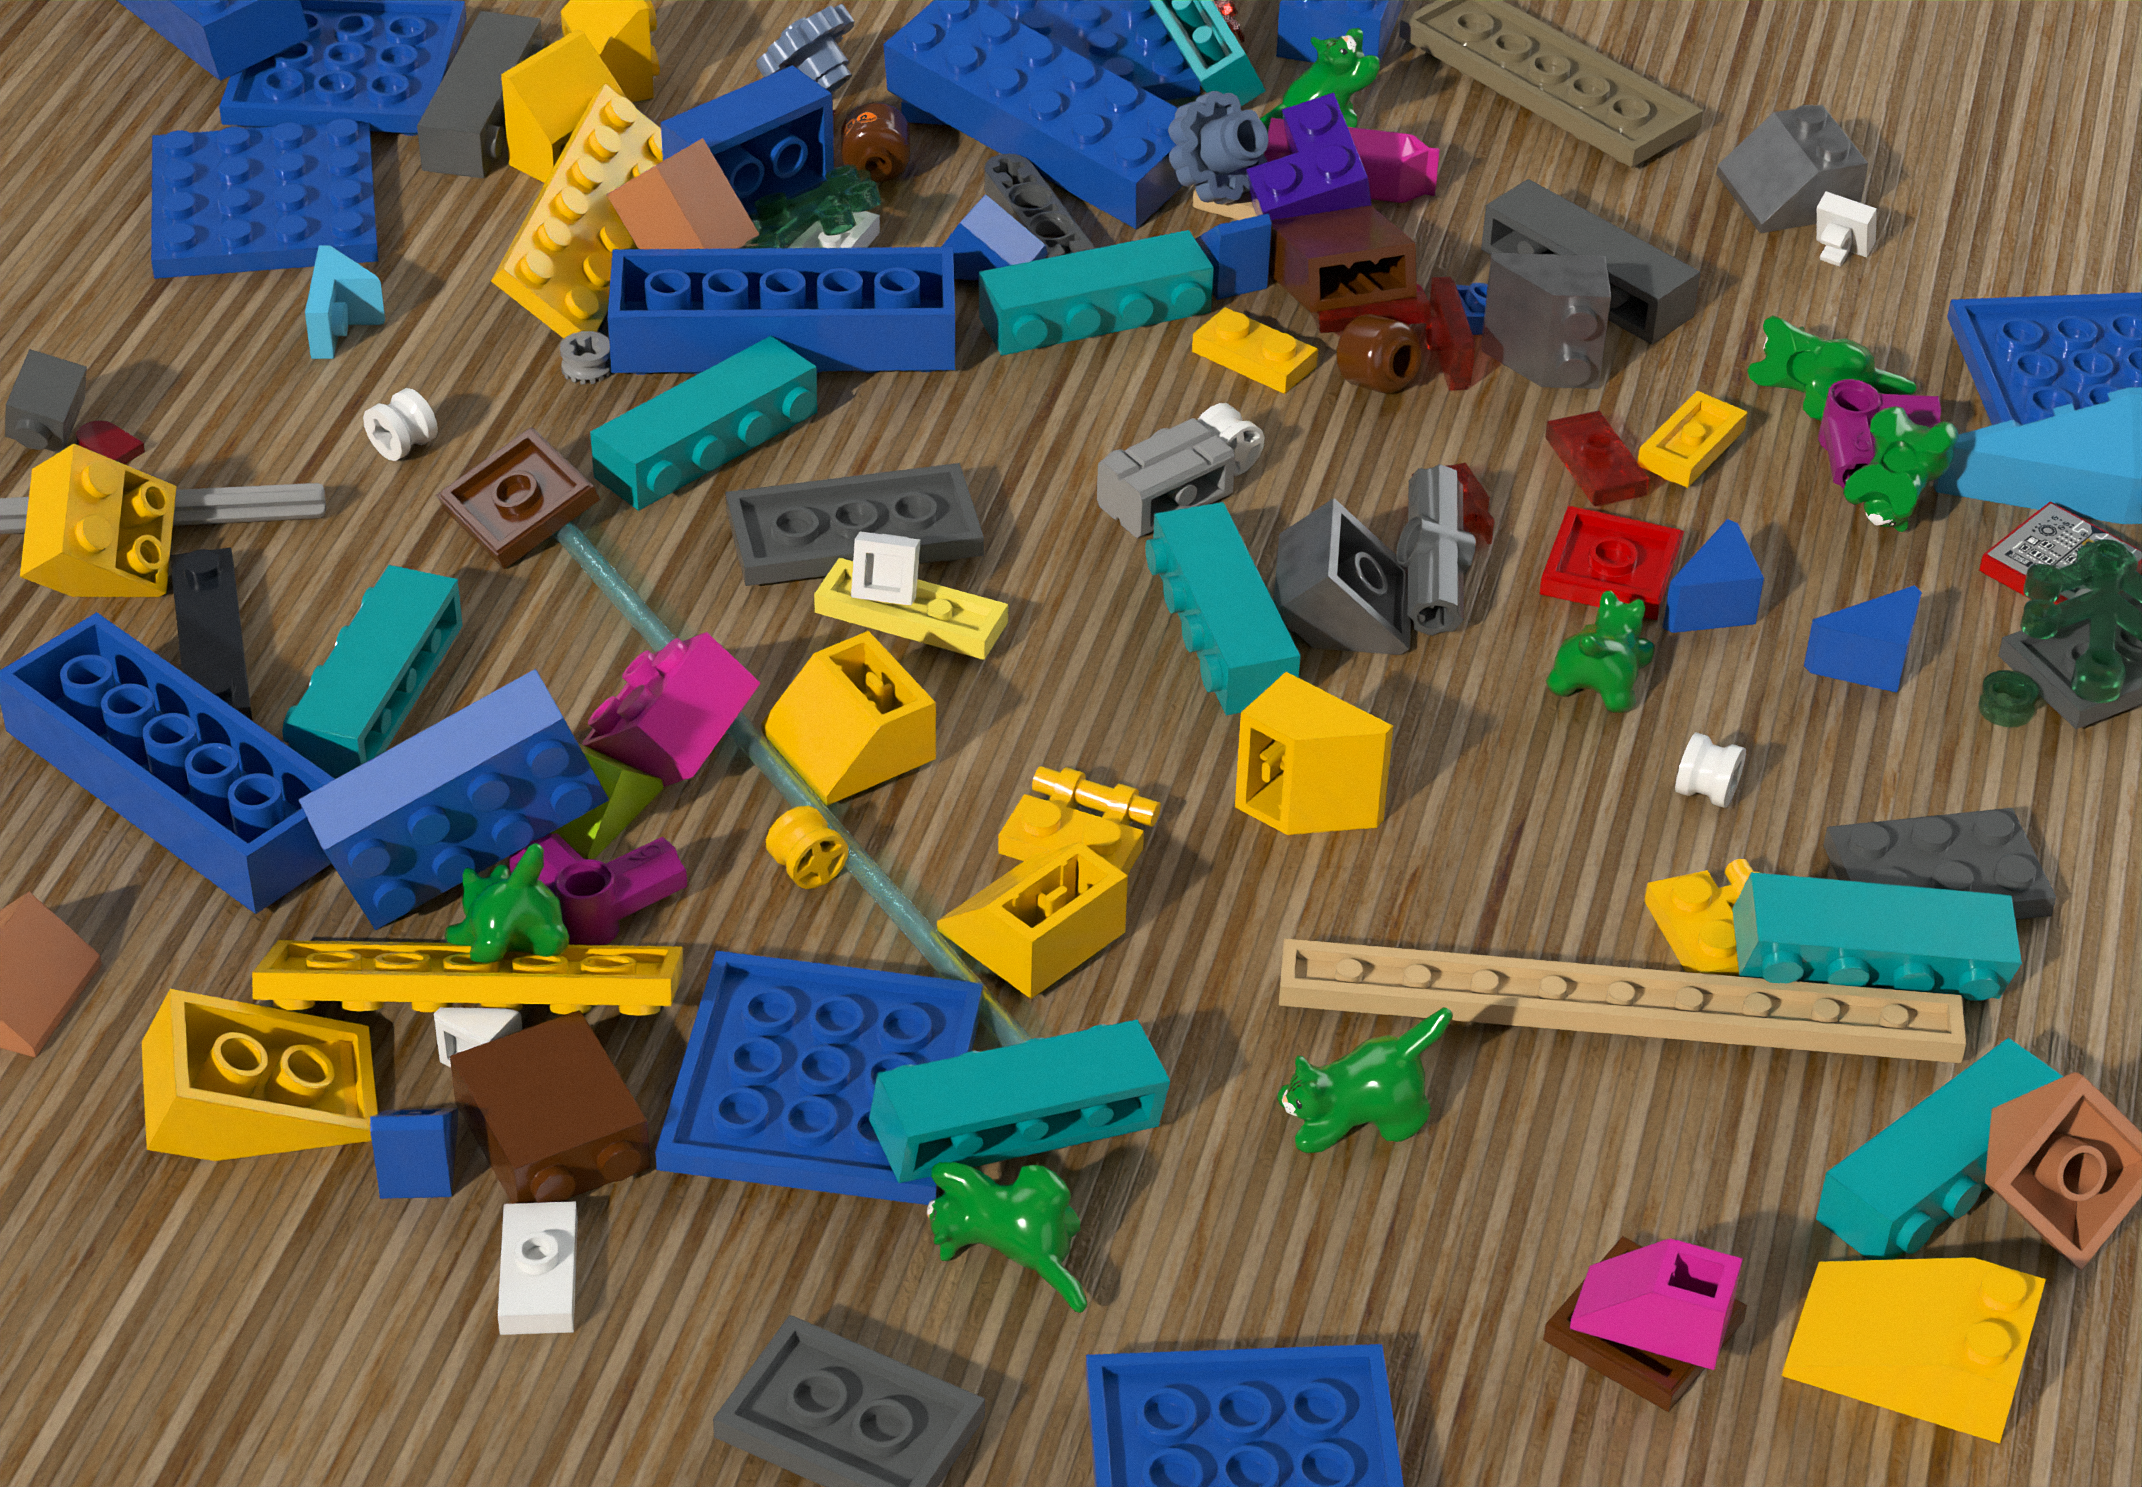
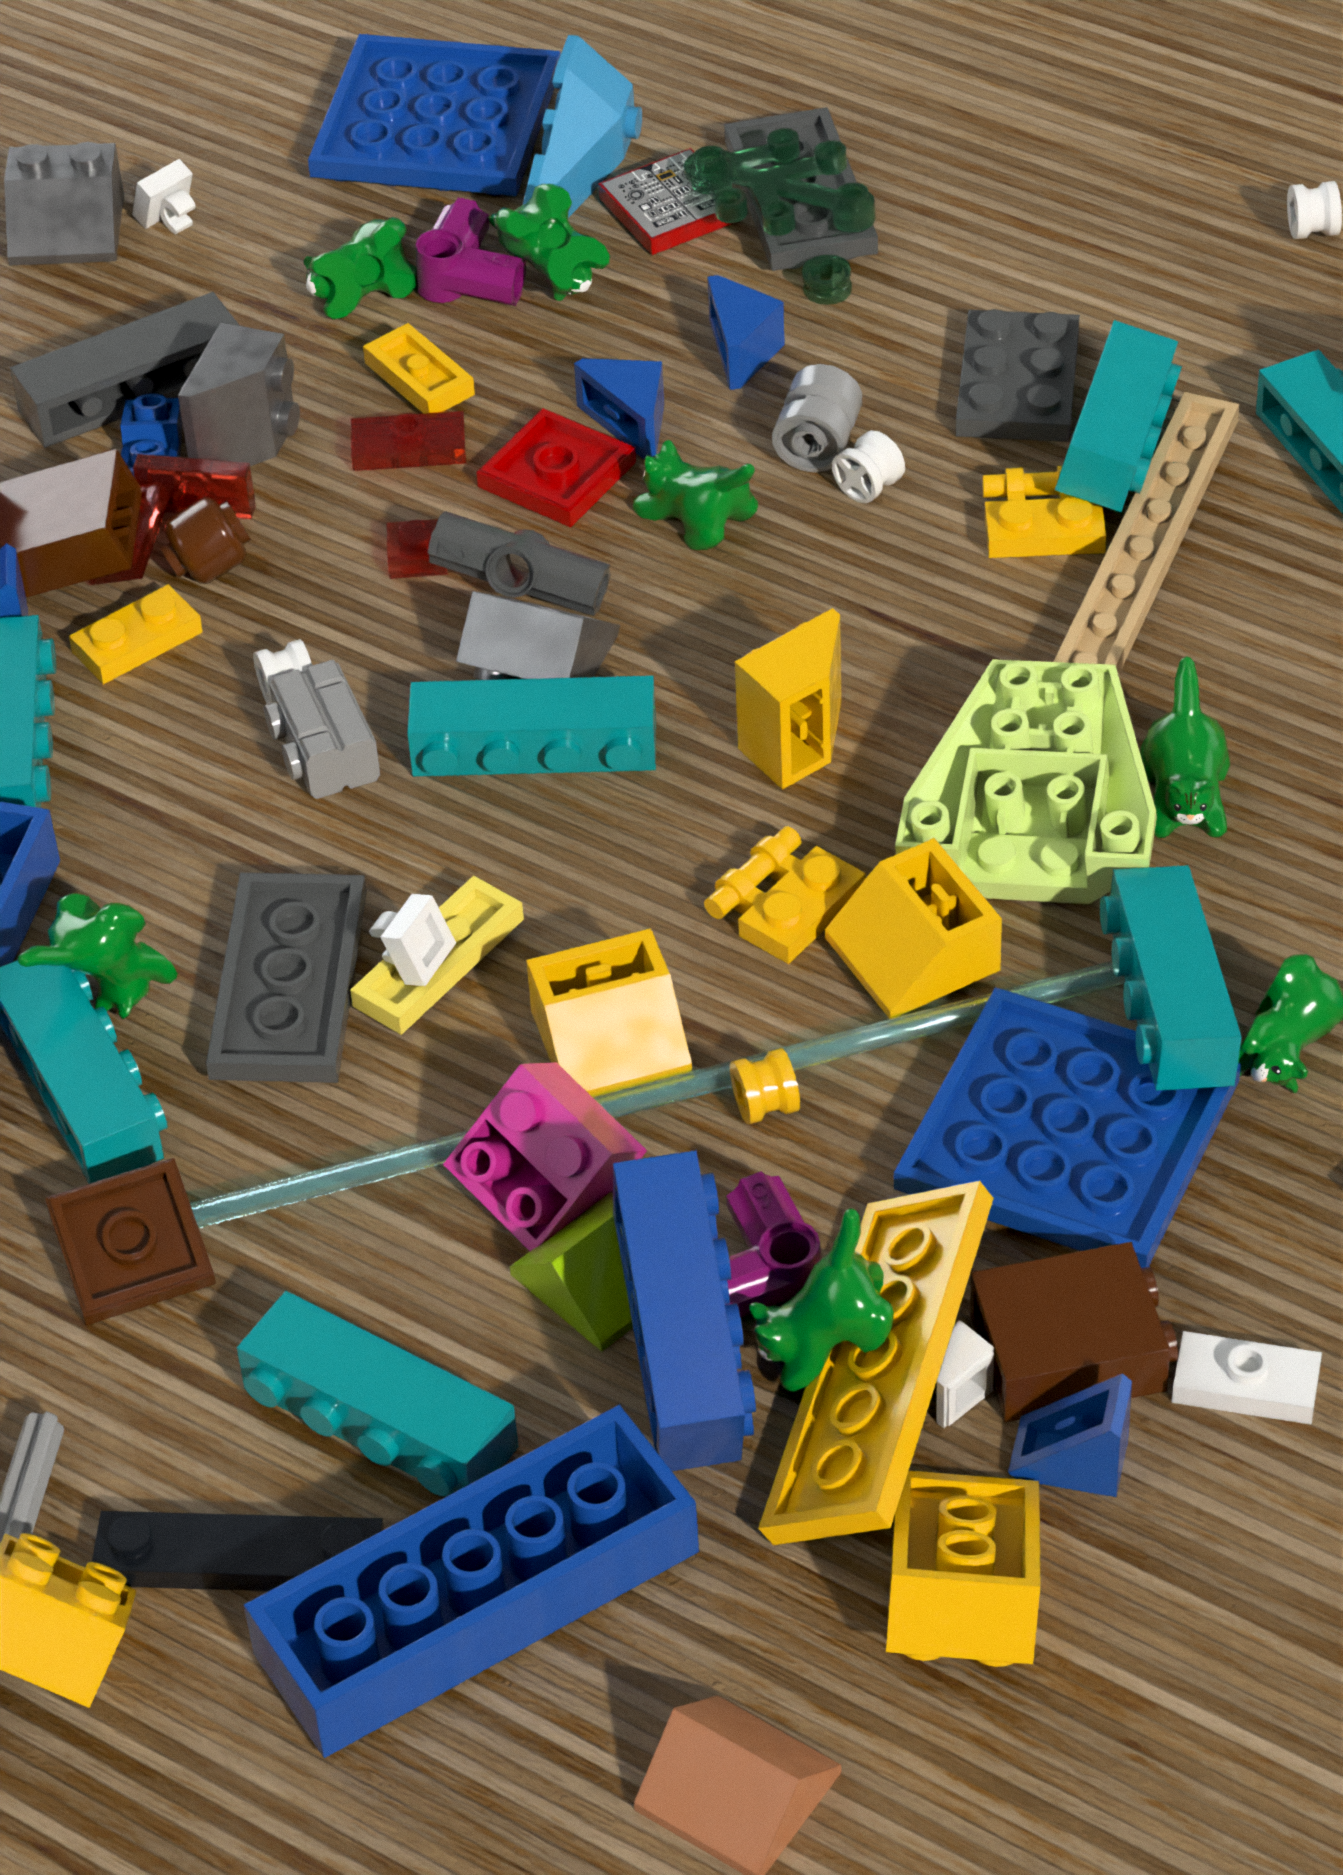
camera: 70 degrees left, 5 degrees up
(809, 377) = (104, 947): none -> green animal
(1258, 942) = (1037, 785): none -> yellowish green wedge
(1762, 714) = (817, 417): none -> light grey wheel

